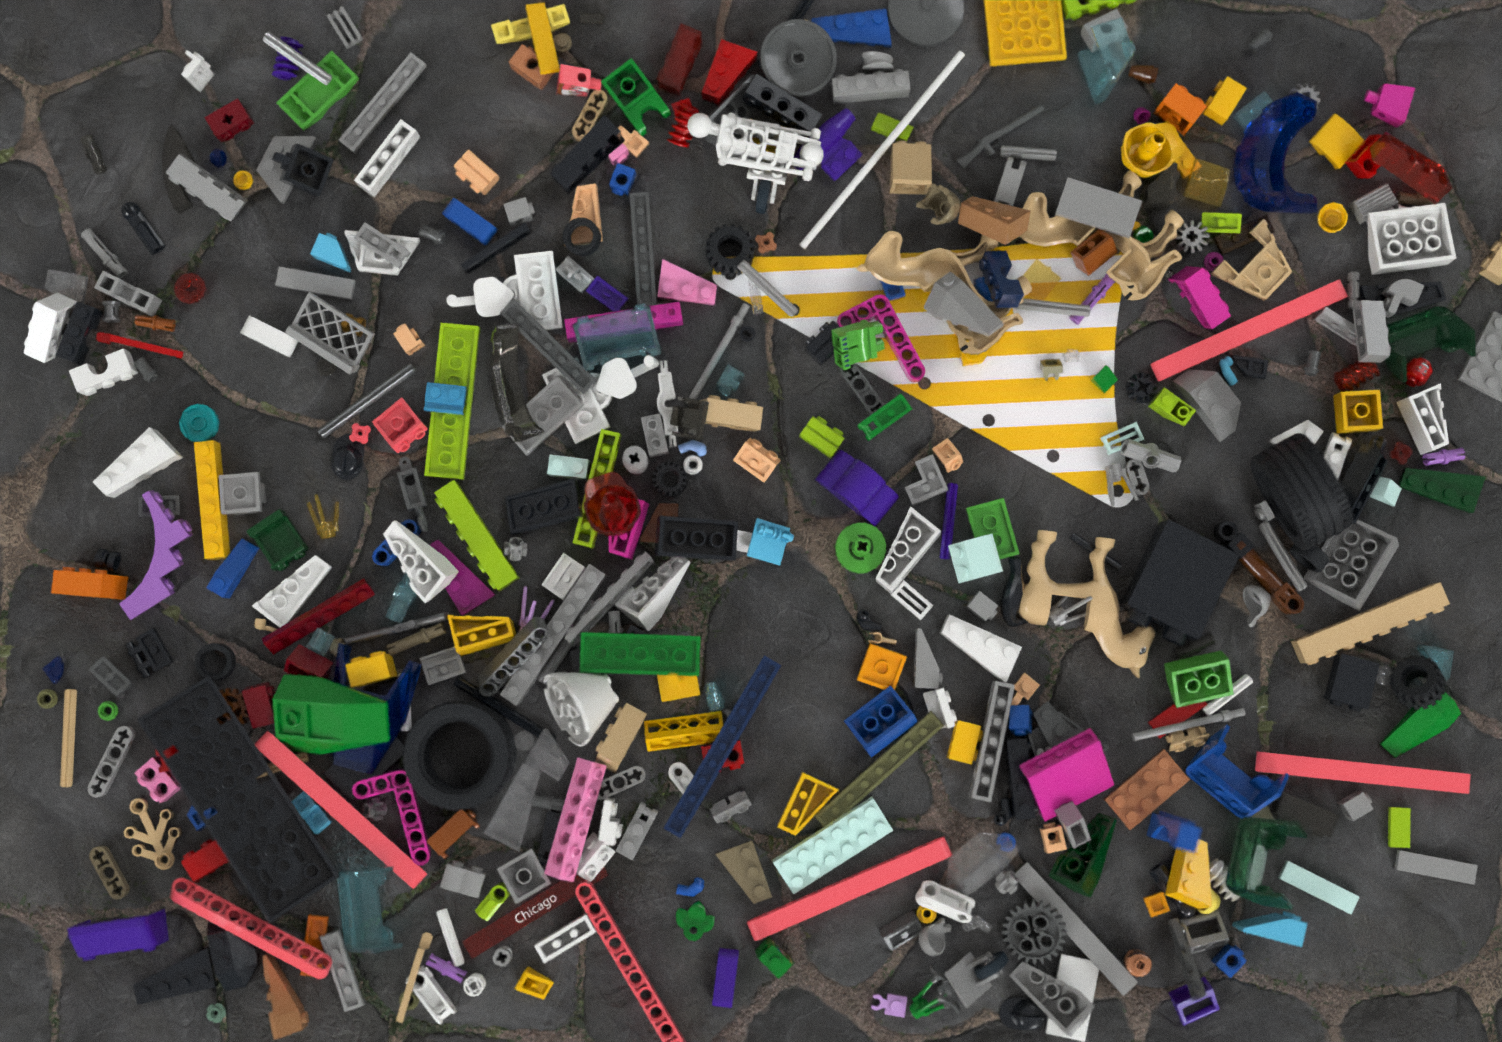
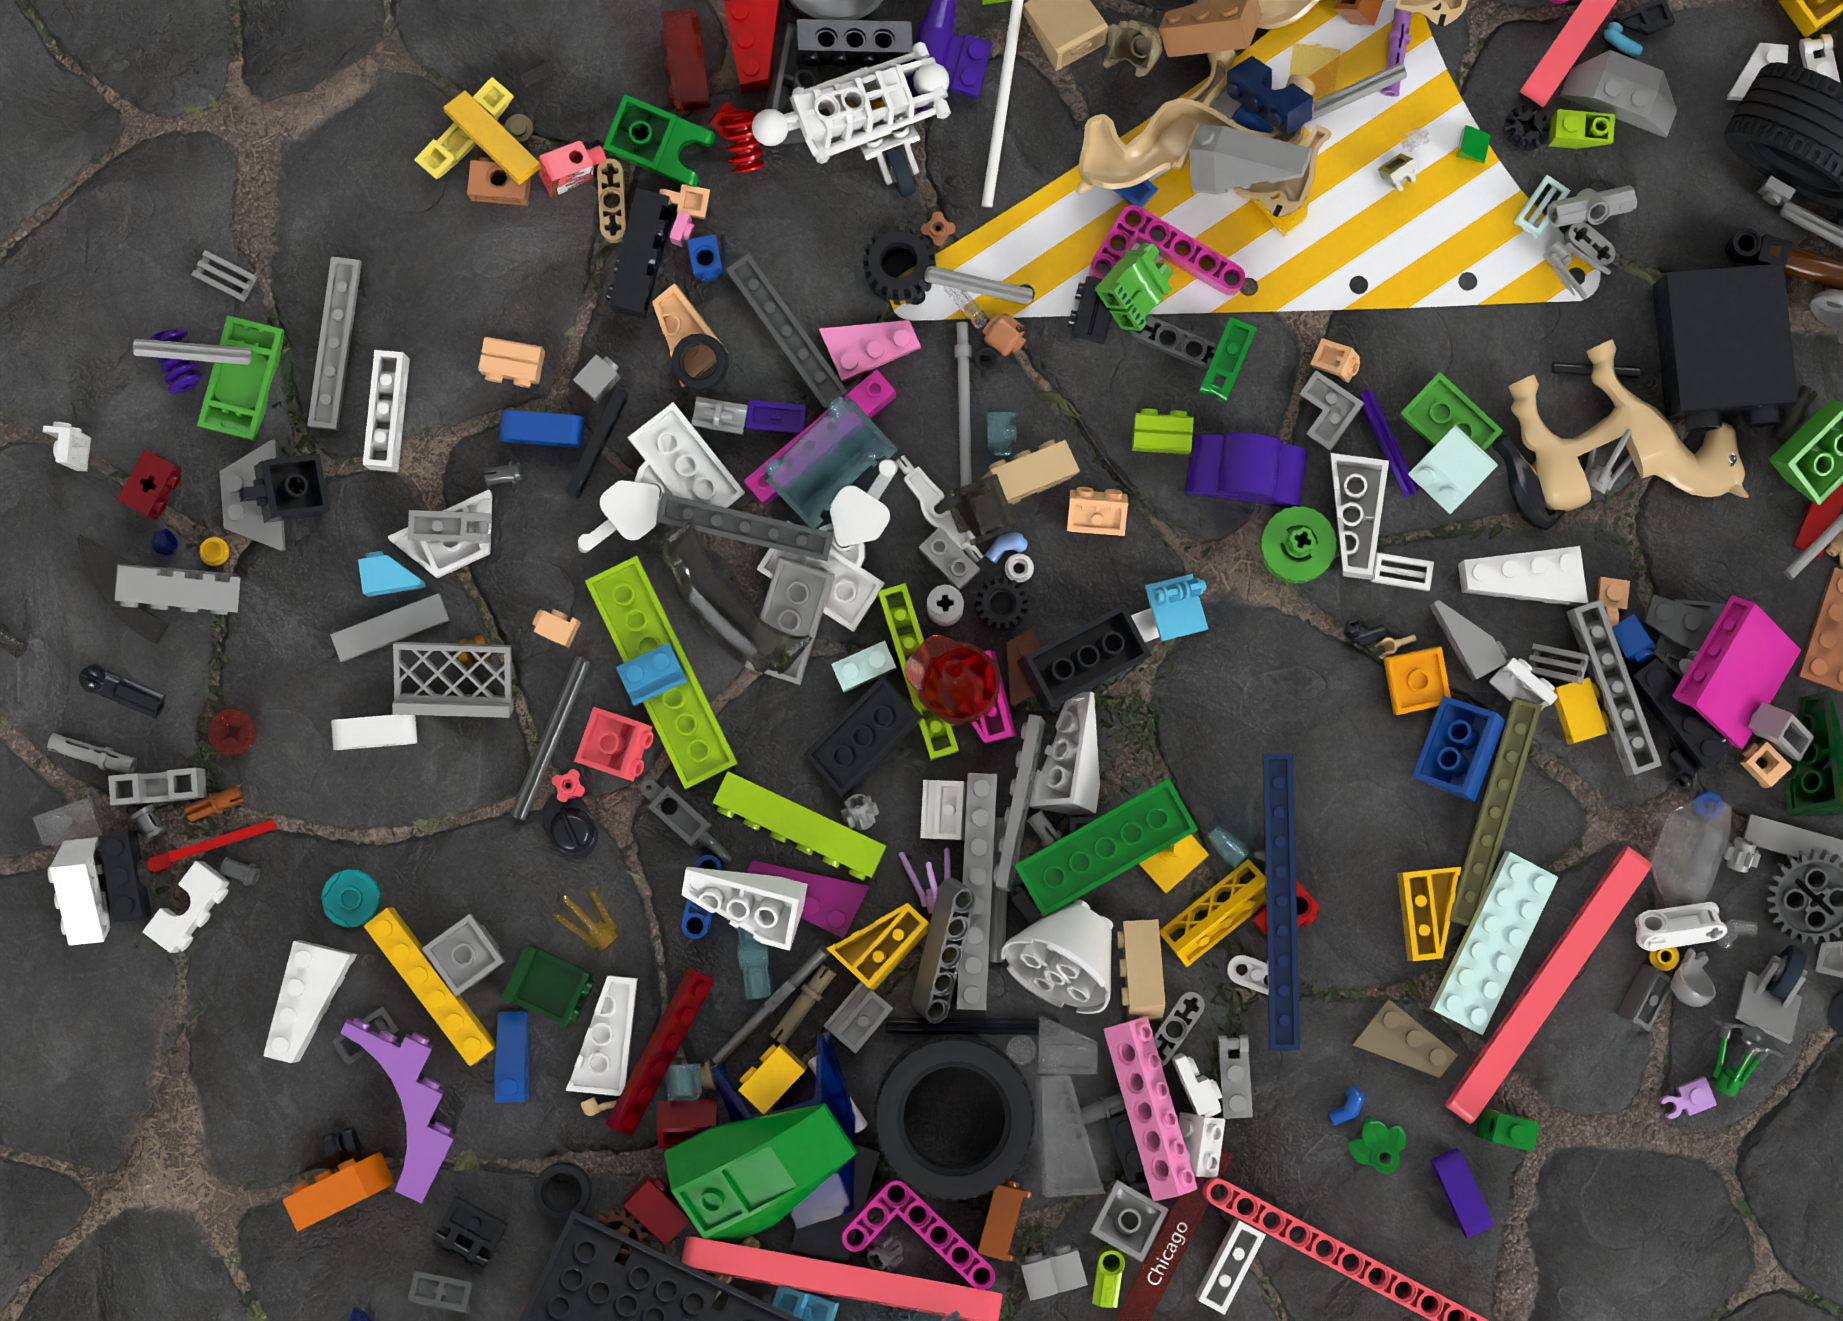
camera: 25 degrees left, 0 degrees up
(739, 804) = (1332, 983): light grey hinge -> none
(766, 326) = (1004, 334): none -> nougat head
(958, 696) = (1536, 659): none -> light grey tile
(982, 606) = (1497, 526): light grey brick -> none

